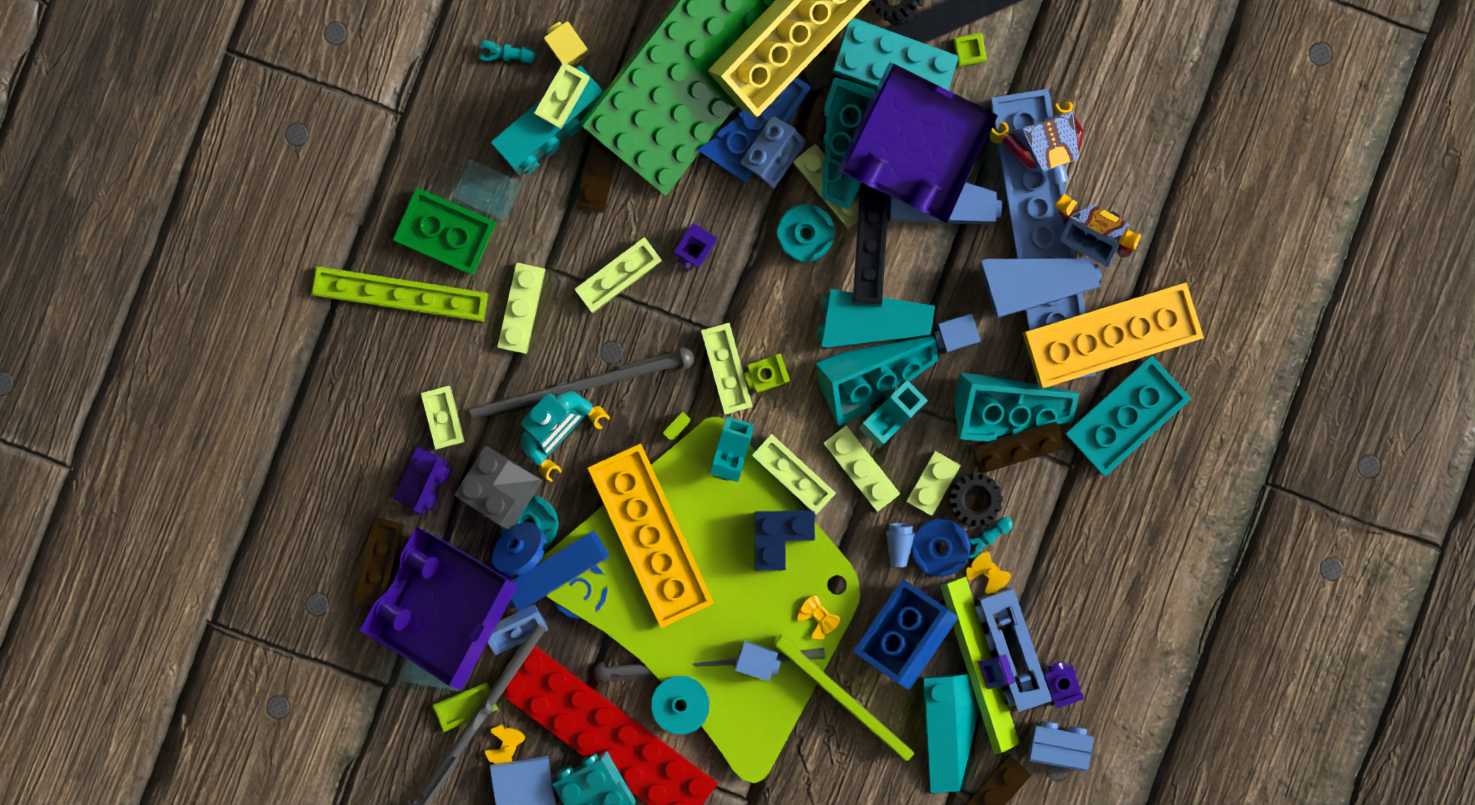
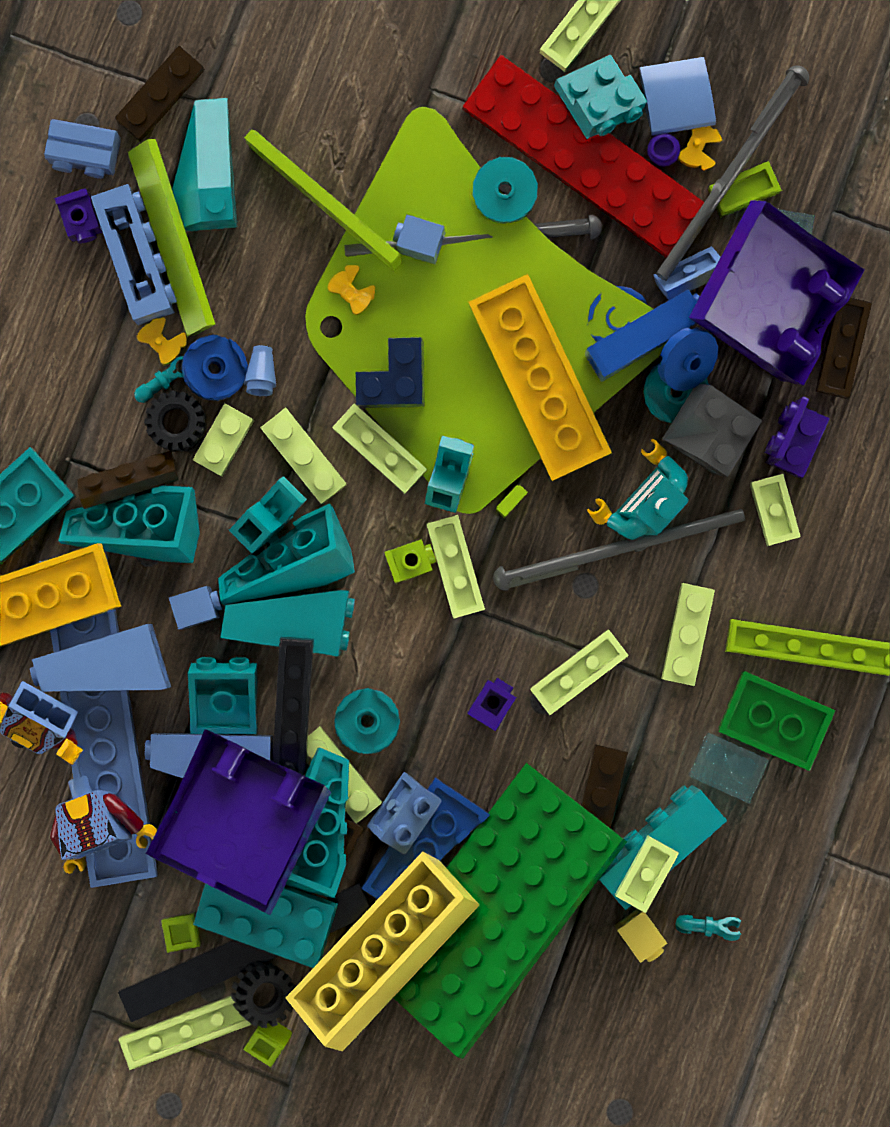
camera: 175 degrees right, 0 degrees up
(537, 742) = (663, 149): none -> dark purple plate
(905, 634) = (253, 268): blue brick -> none
(932, 255) = (223, 696): none -> teal plate
(996, 671) = (151, 228): dark purple tile -> none

